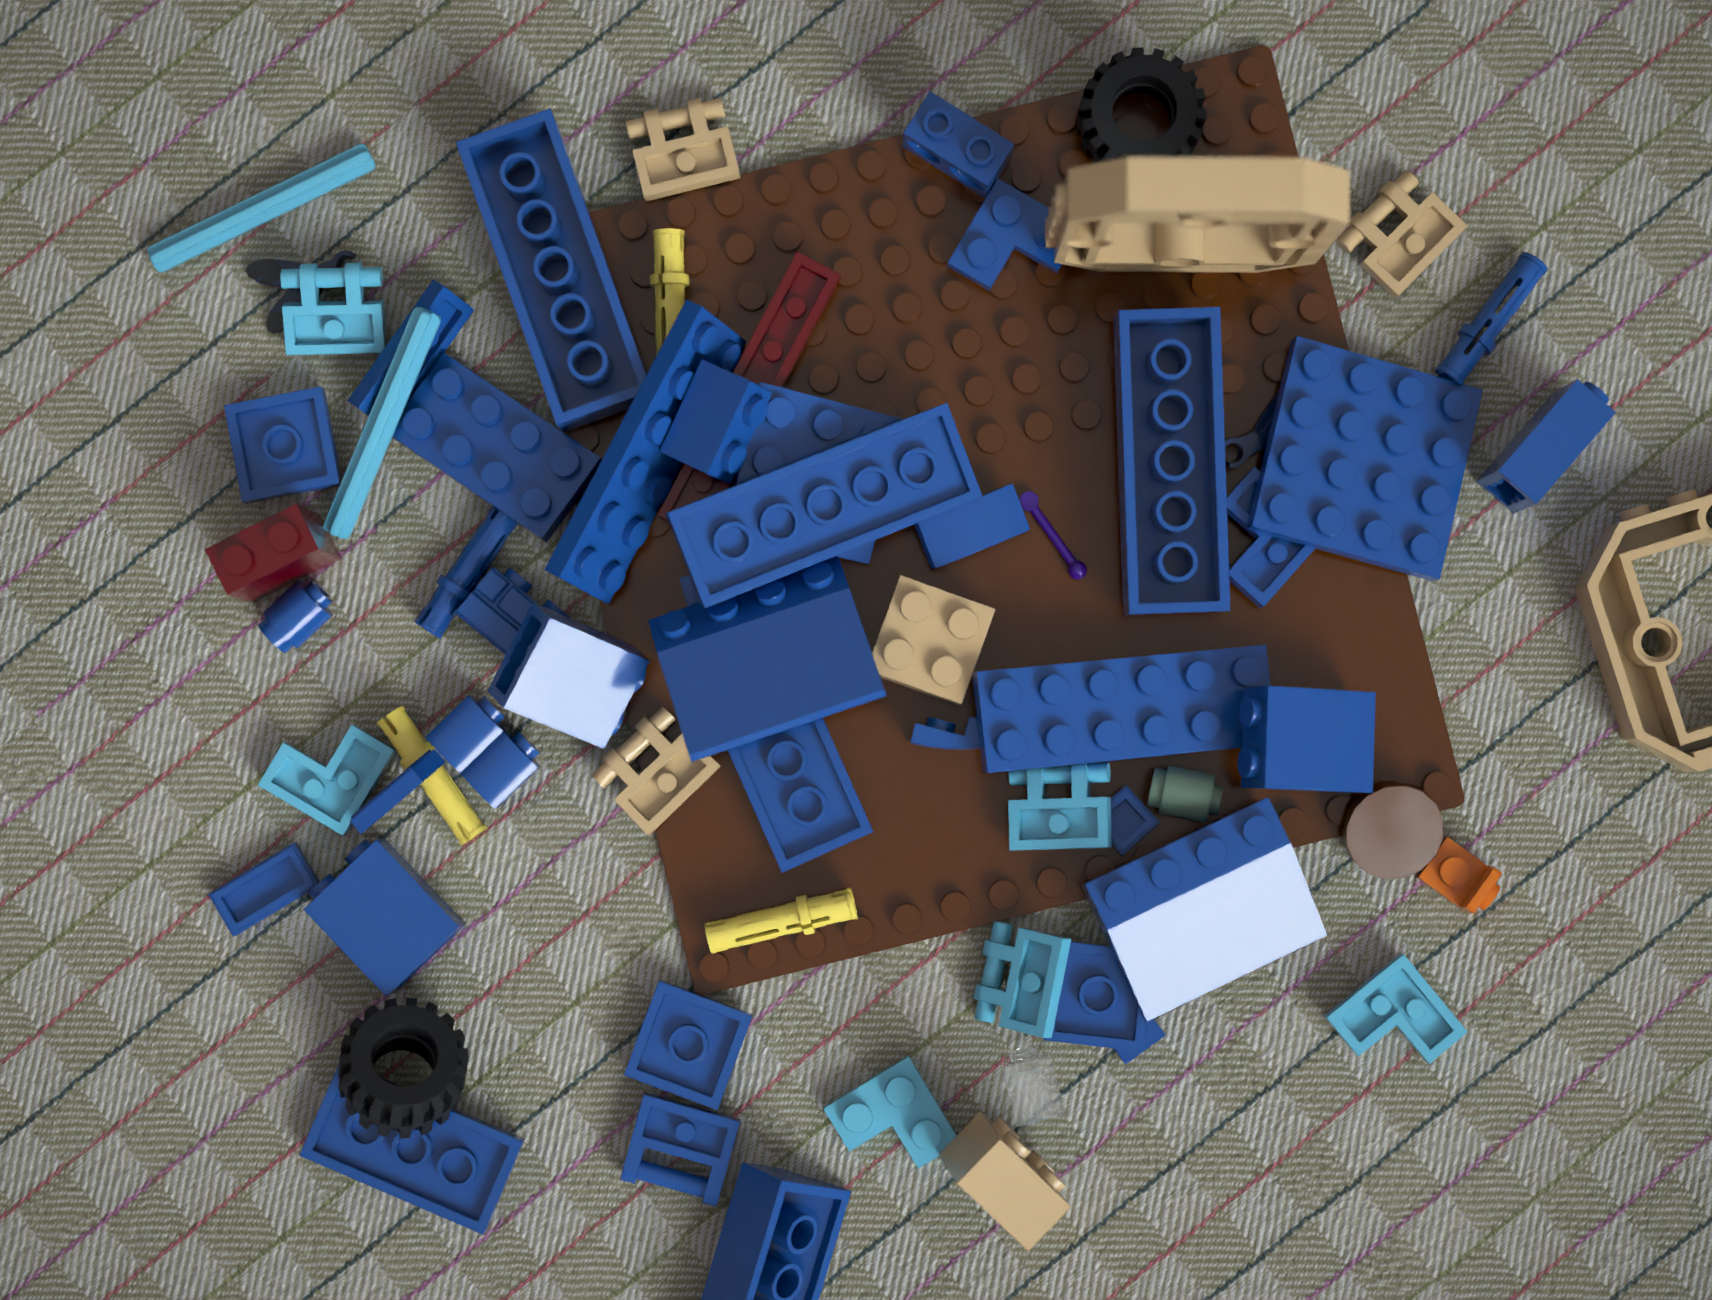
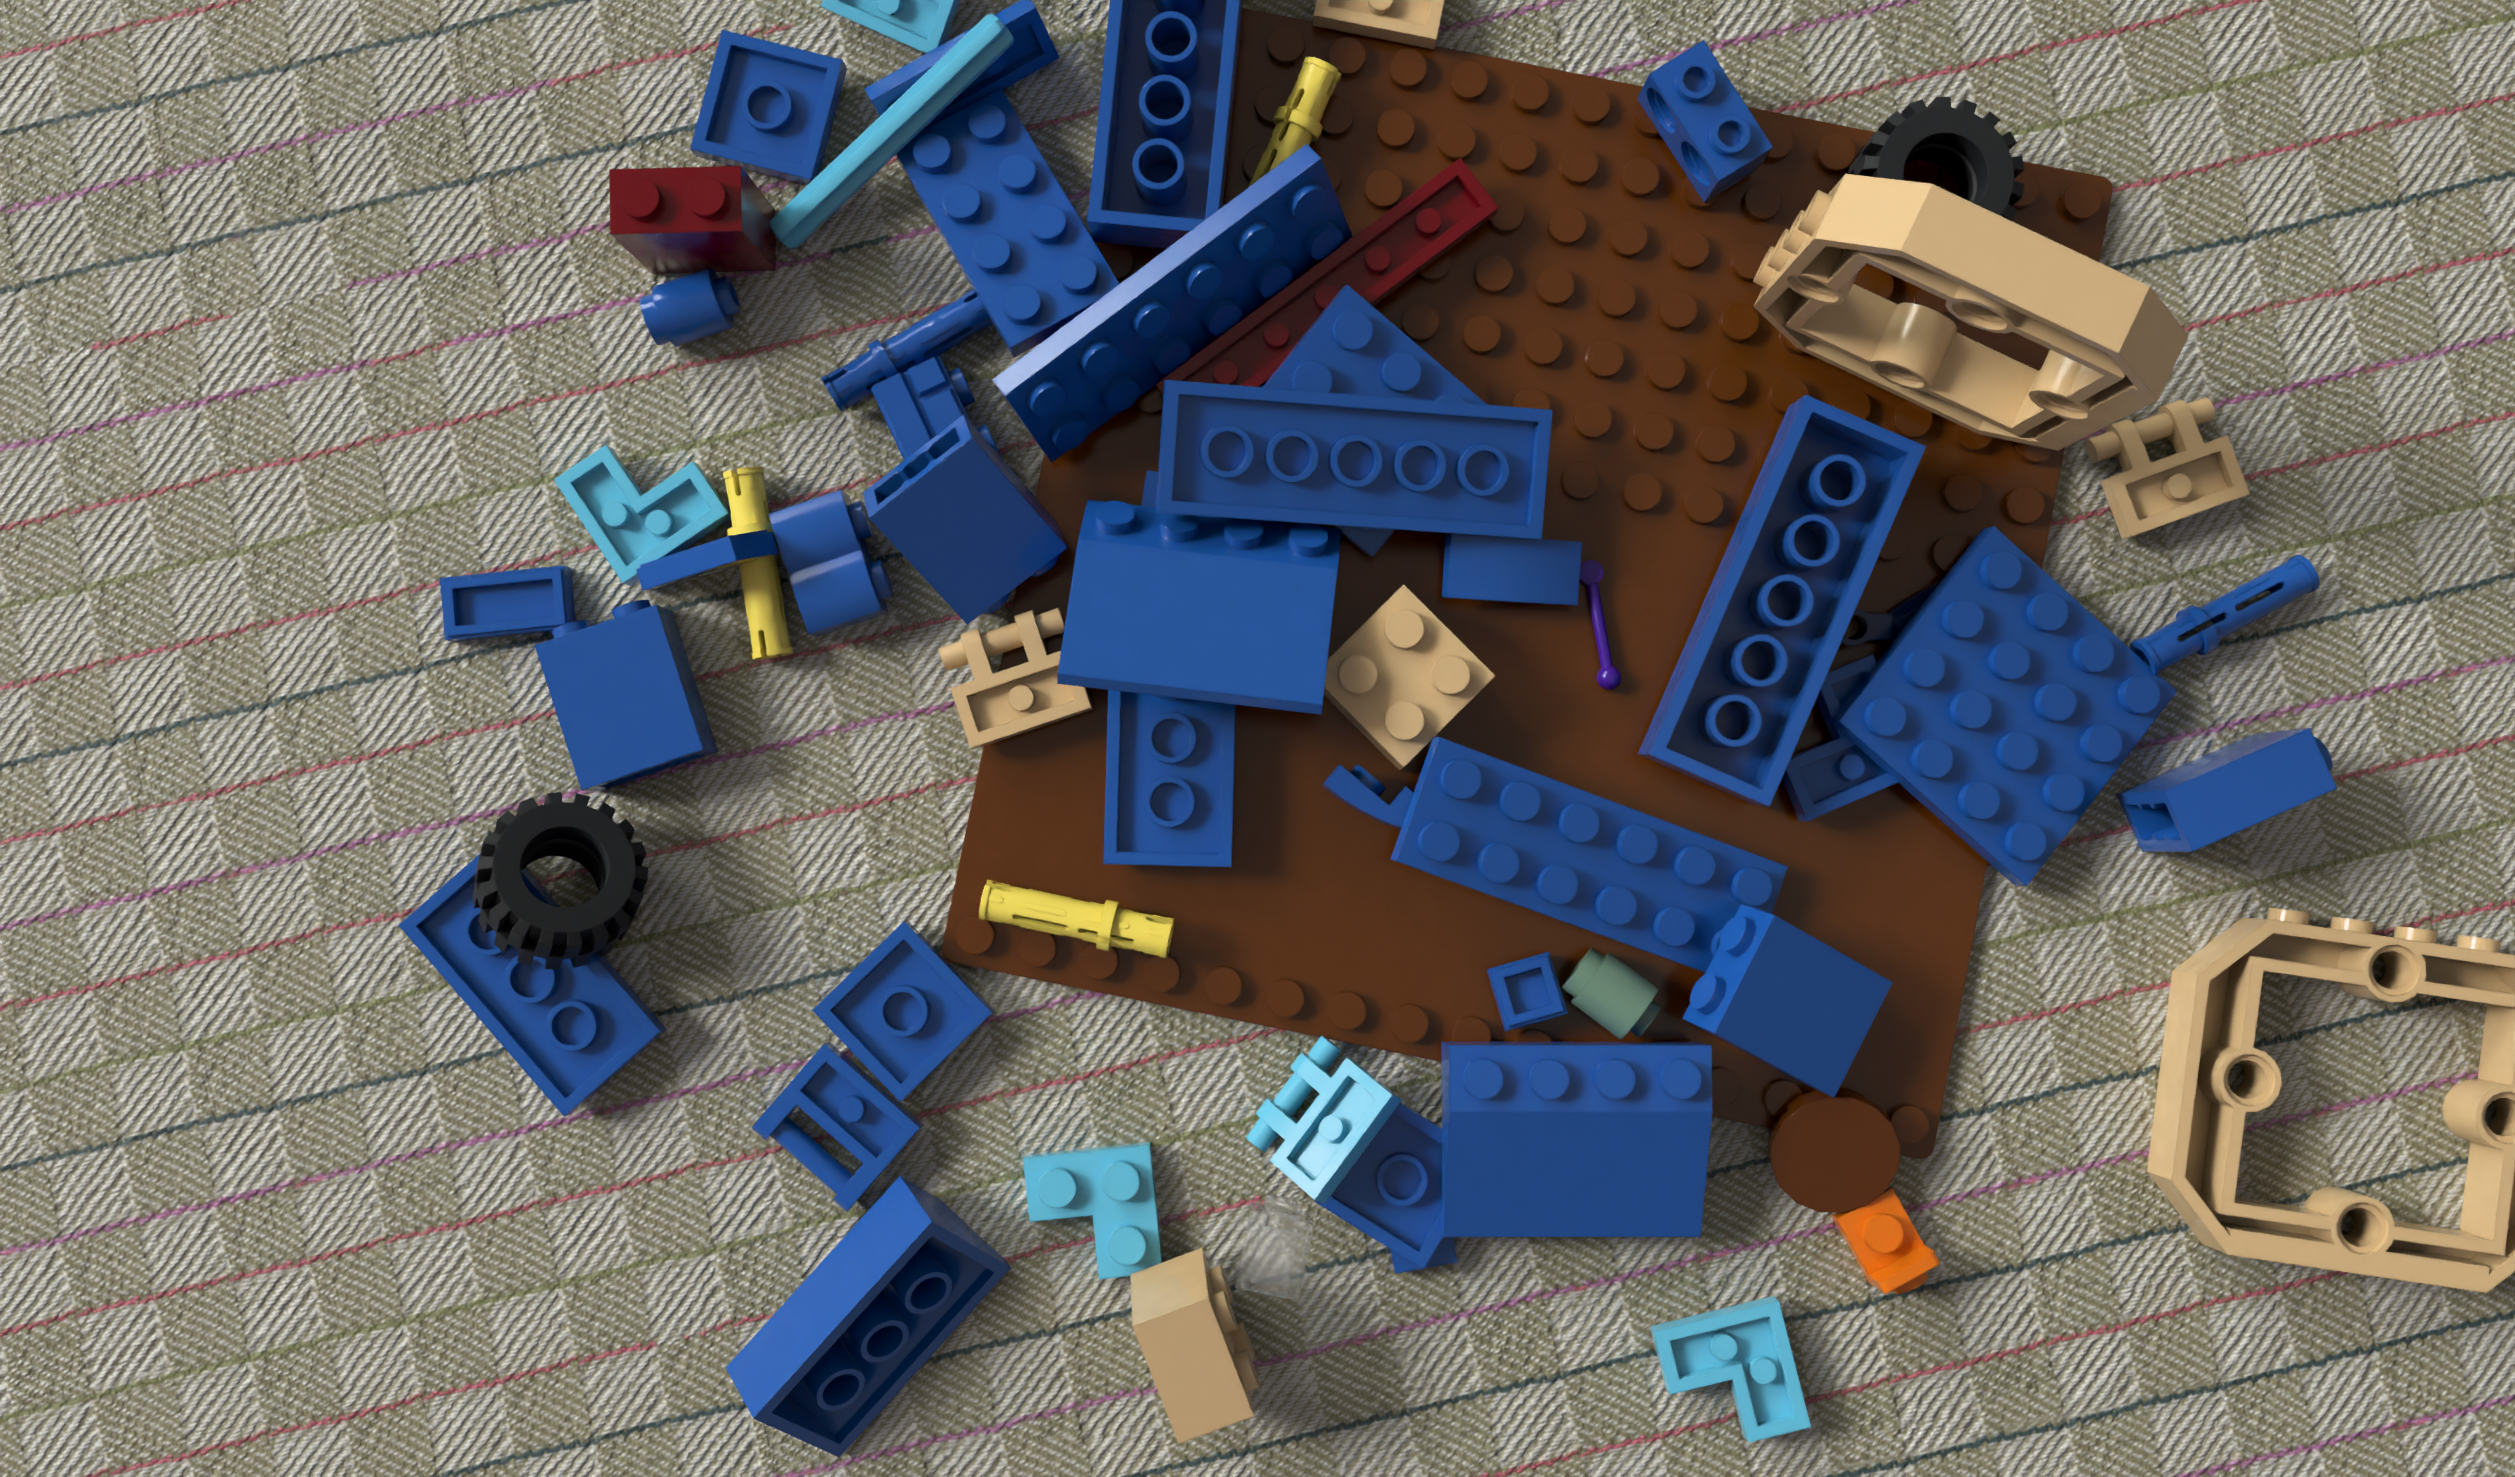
camera: 25 degrees right, 0 degrees up
(716, 422) = (1274, 304): blue brick -> none
(1002, 224) = (1710, 240): blue plate -> none
(1060, 822) = (1455, 959): medium azure plate -> none

